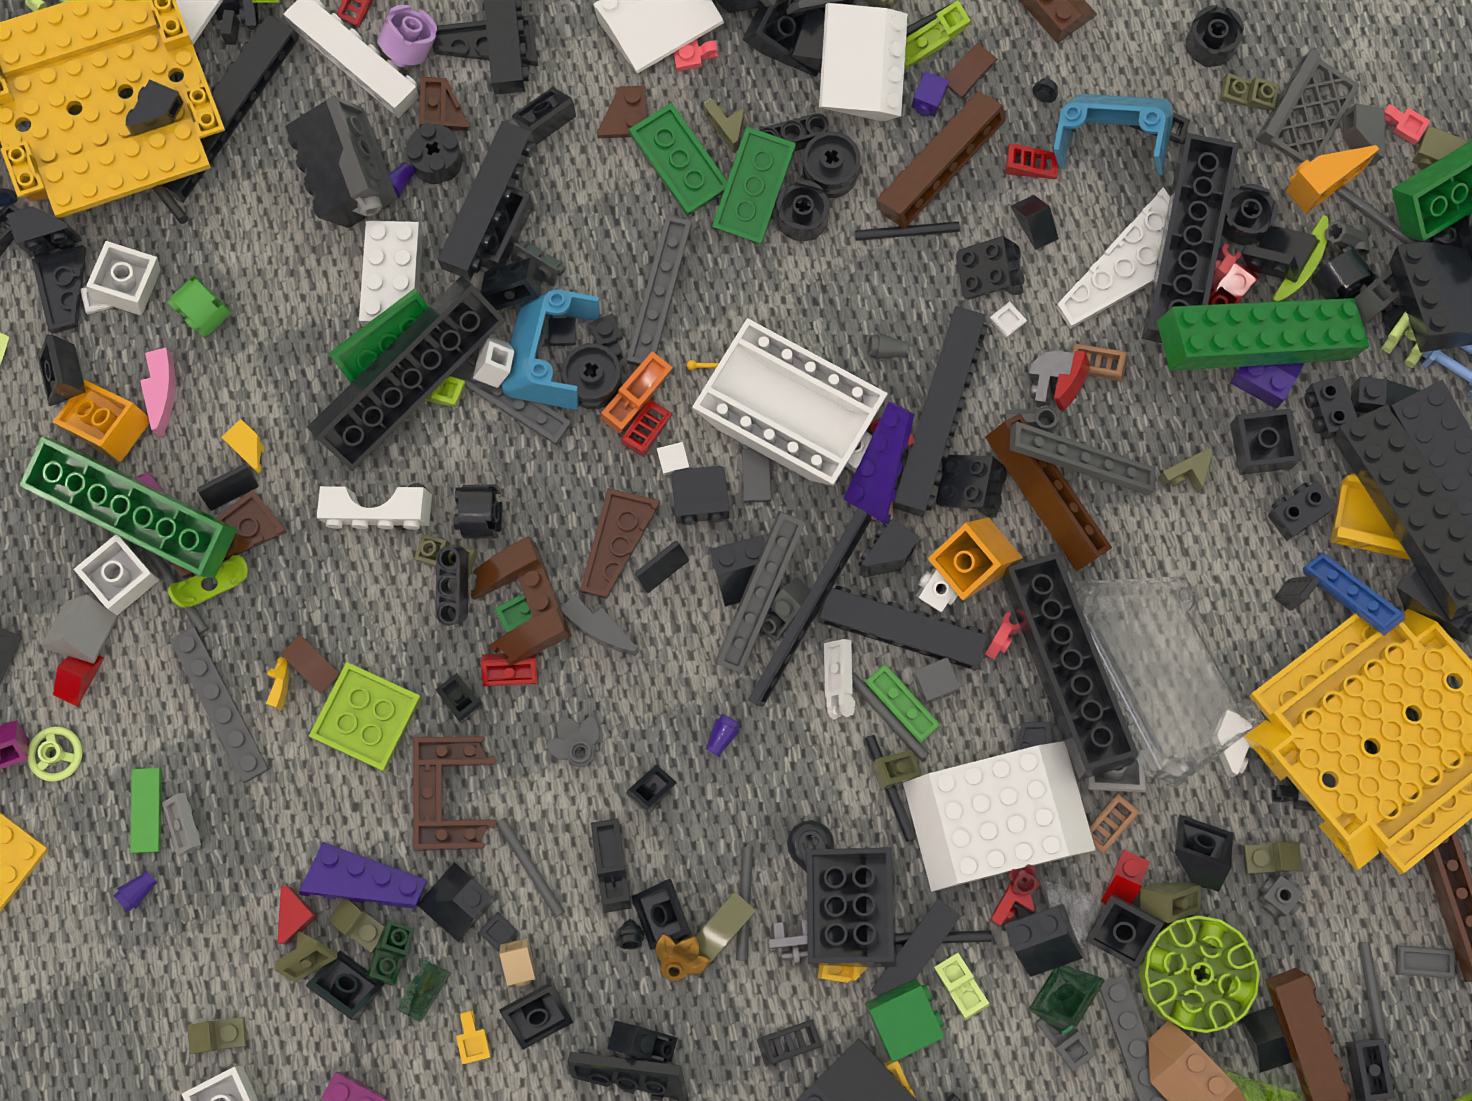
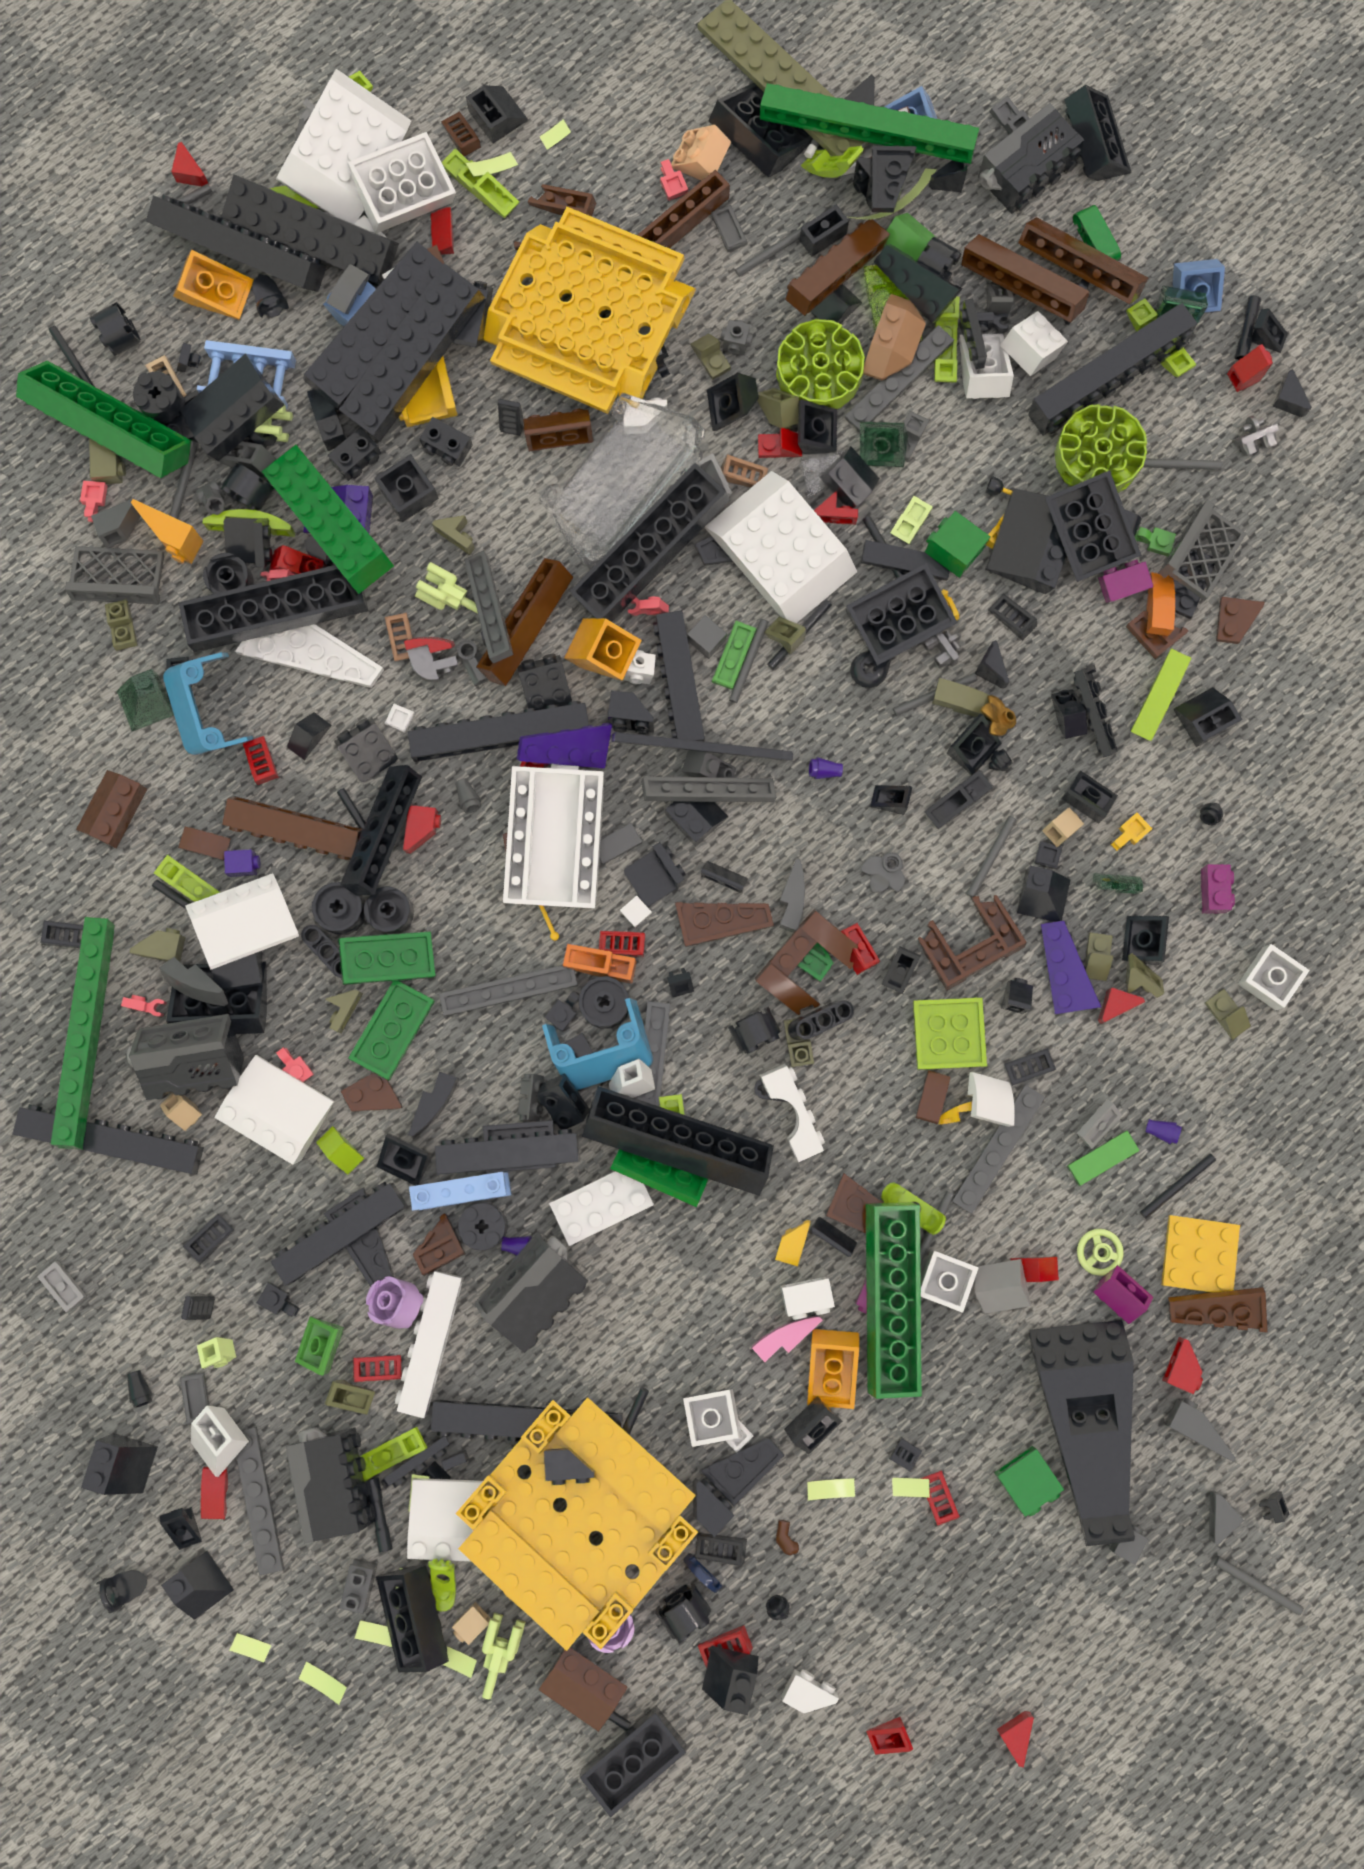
camera: 115 degrees left, 5 degrees up
(71, 875) = (1178, 1185): none -> black bar
(182, 425) = (807, 1297): none -> white brick
(199, 306) = (704, 1341): bright green brick -> none
(269, 719) = (991, 1099): none -> white slope
(291, 798) = (1048, 1058): none -> black slope
(361, 807) = (1017, 996): none -> black slope
(389, 952) = (1107, 922): dark green slope -> none
(475, 138) = (460, 1191): none -> light blue fence
(570, 464) = (680, 983): none -> black tile
(584, 166) = (433, 1103): none -> black slope
(586, 58) = (339, 1150): none -> lime slope
(741, 983) = (992, 667): none -> black slope
(838, 678) = (740, 706): white hinge -> none
(877, 283) = (420, 826): none -> red slope
(889, 237) = (381, 830): none -> black brick
(1026, 886) = (820, 504): dark red plate -> none
(1045, 90) = (194, 776): black plate -> none
(1124, 430) = (447, 592): none -> yellowish green plant
(1154, 77) = (144, 700): none -> clear green slope
(1214, 36) = (99, 669): black brick -> none
(1260, 637) = (558, 430): none -> reddish brown slope
(1354, 594) = (493, 377): blue tile -> none

